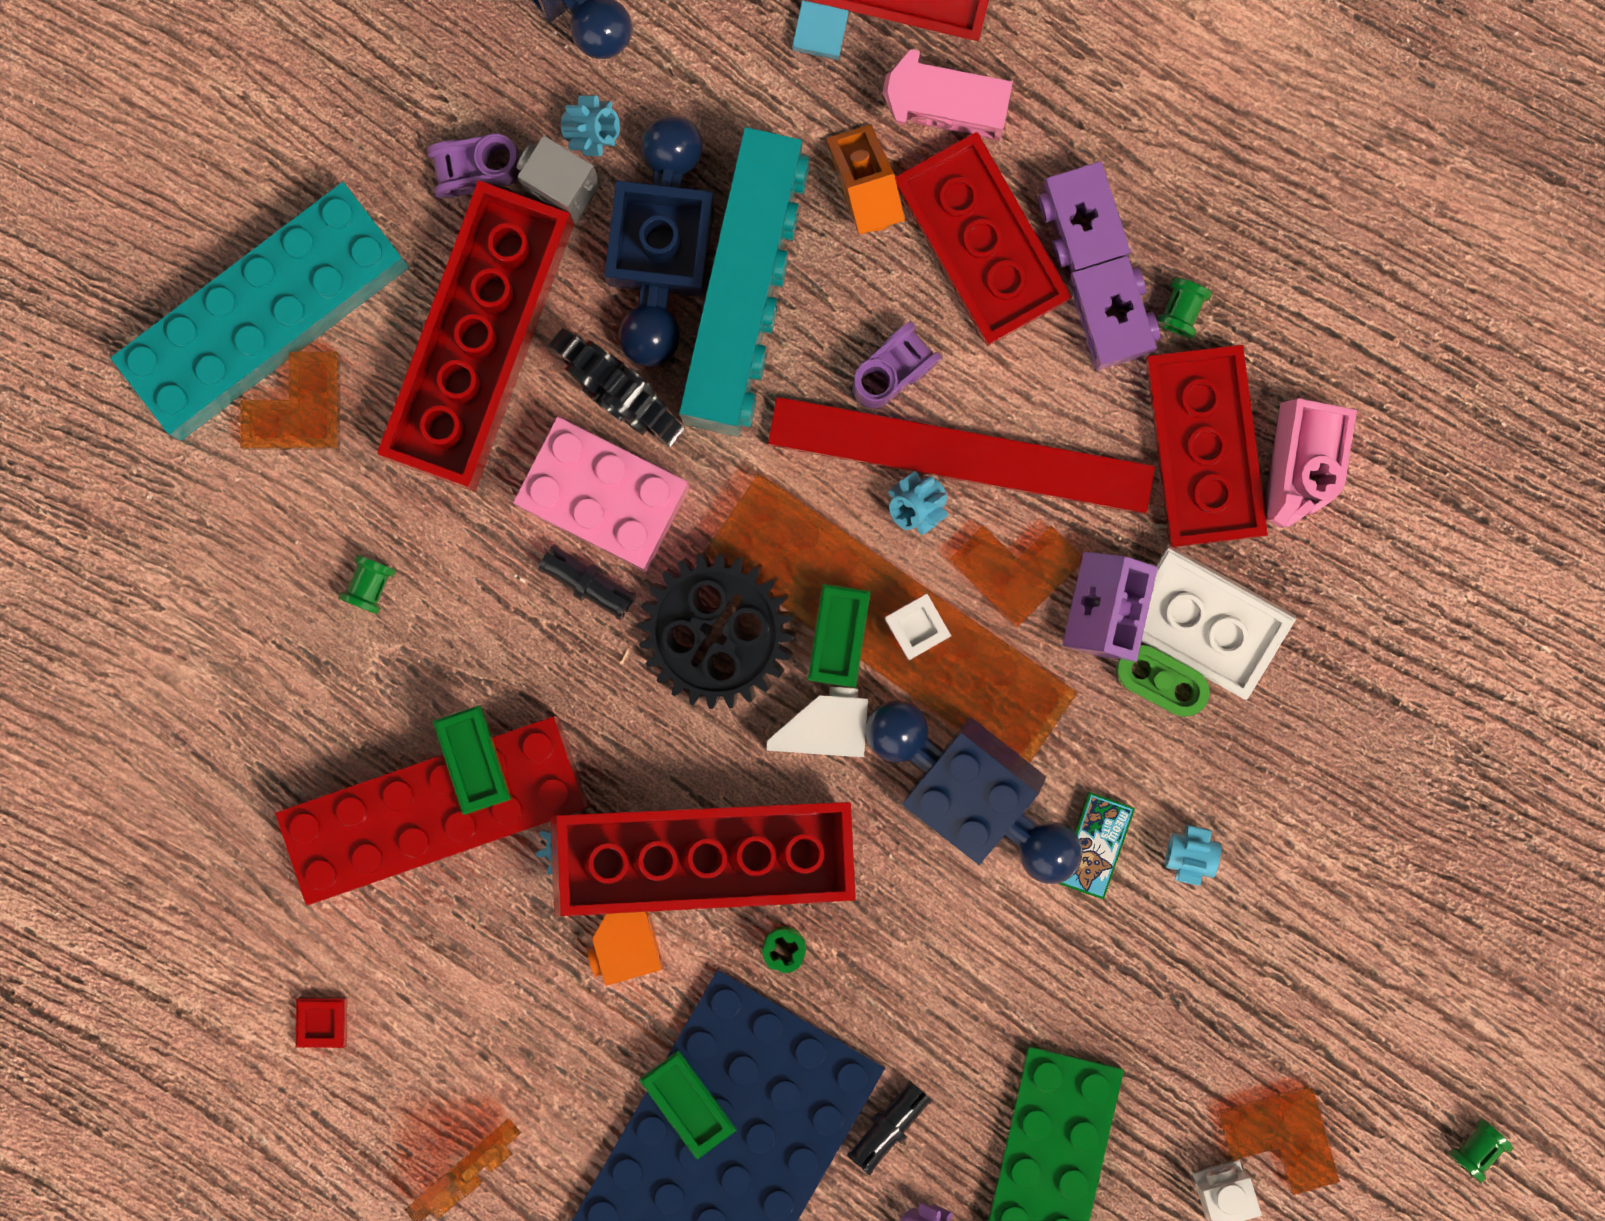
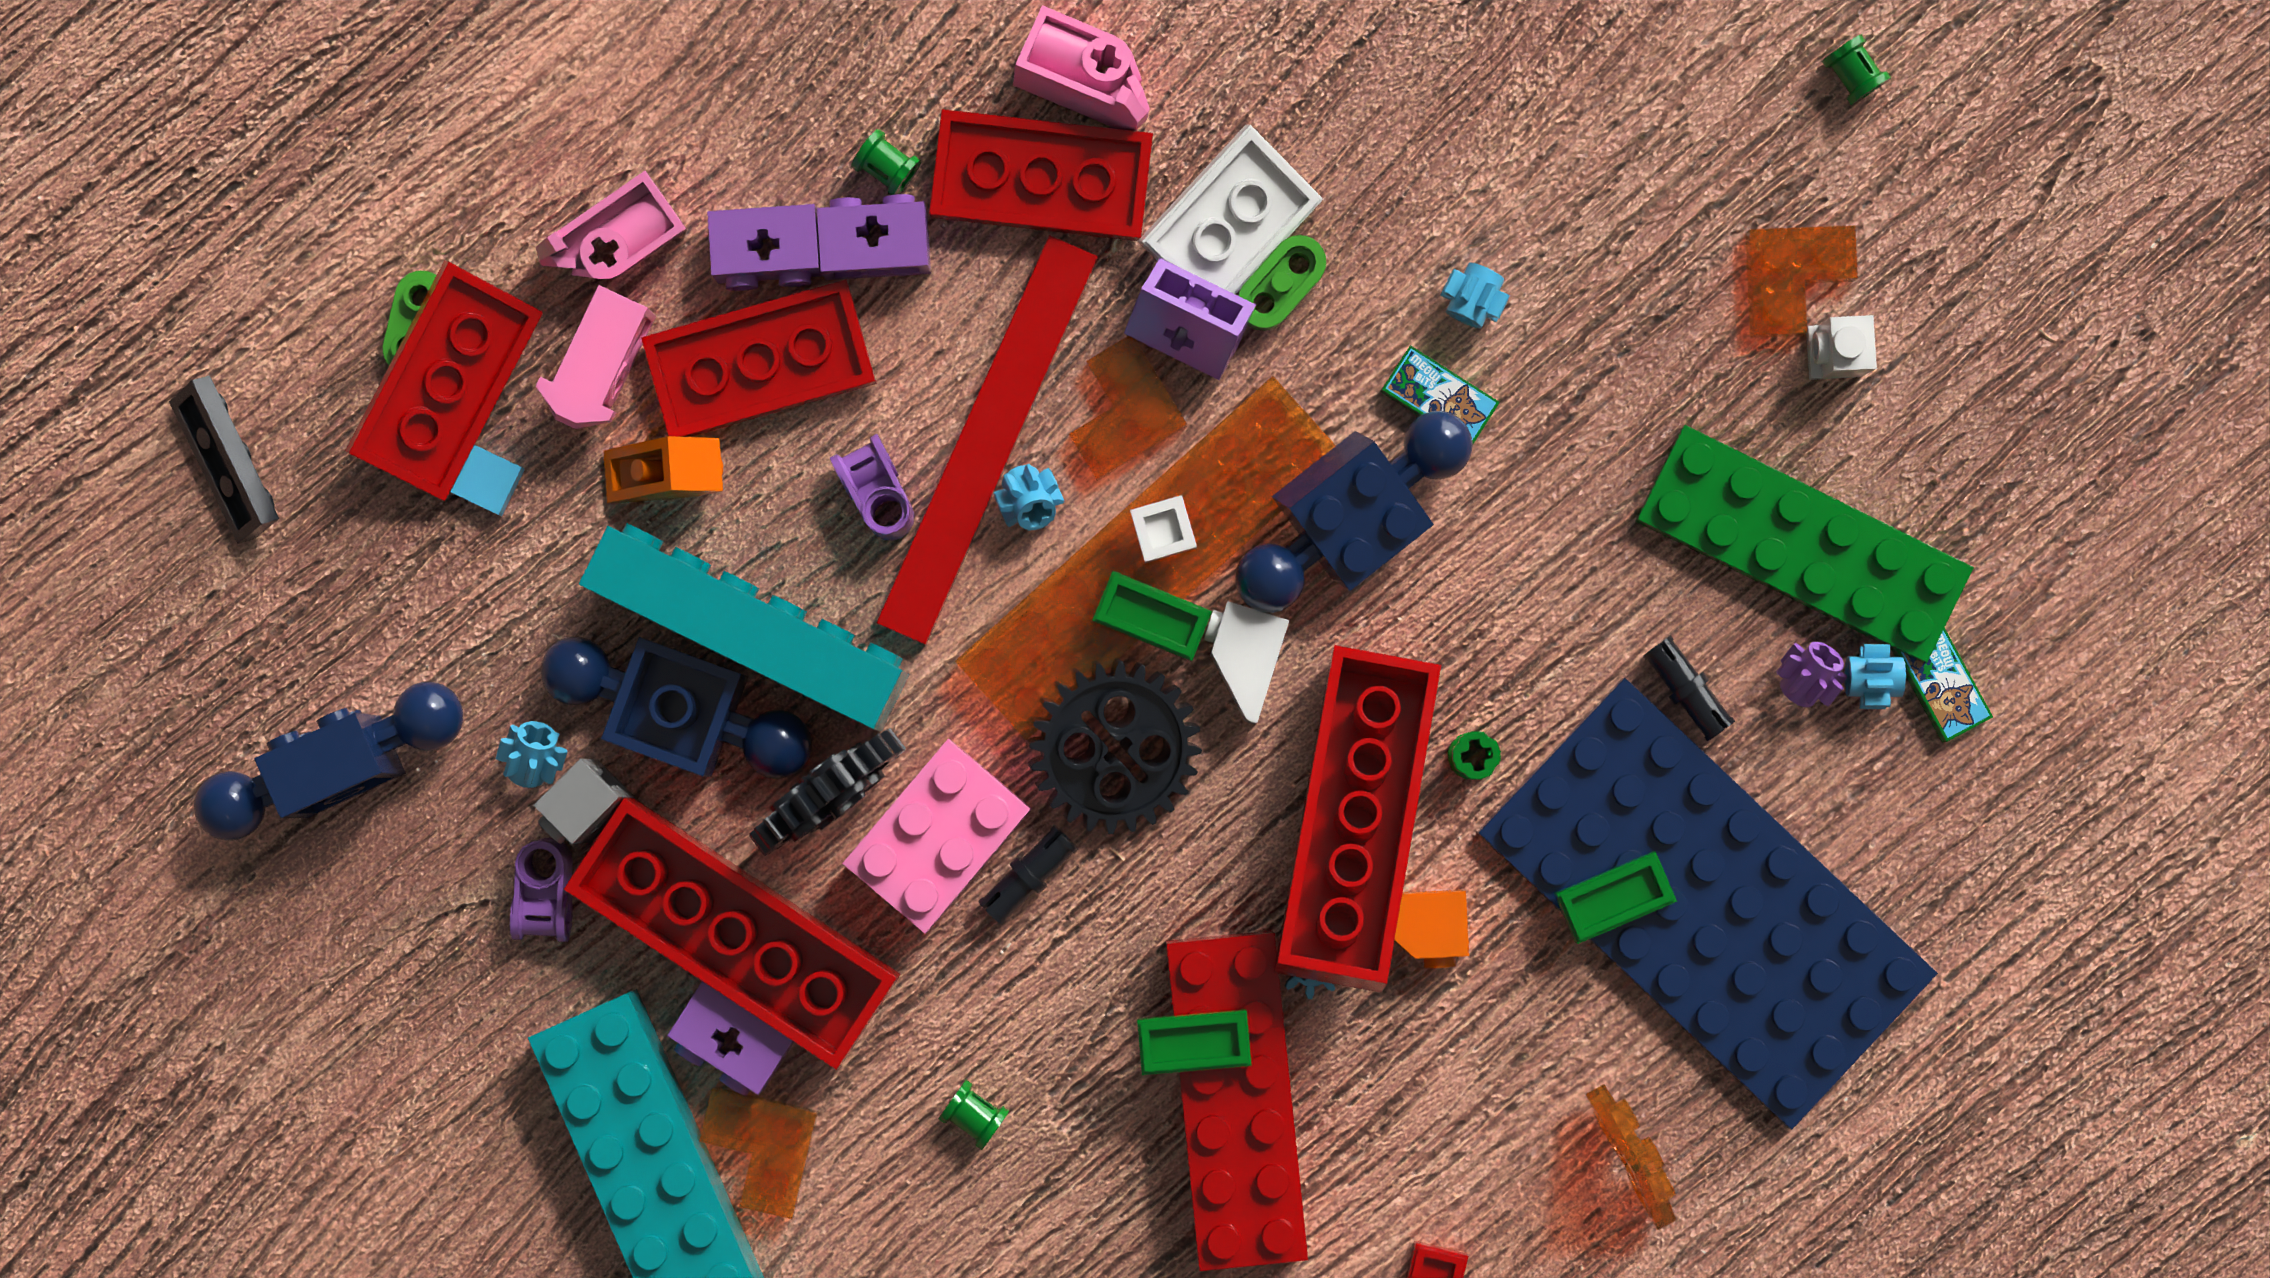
camera: 80 degrees left, 0 degrees up
(376, 331) = (699, 1041): none -> medium lavender brick
(1080, 97) = (632, 216): none -> bright pink piece

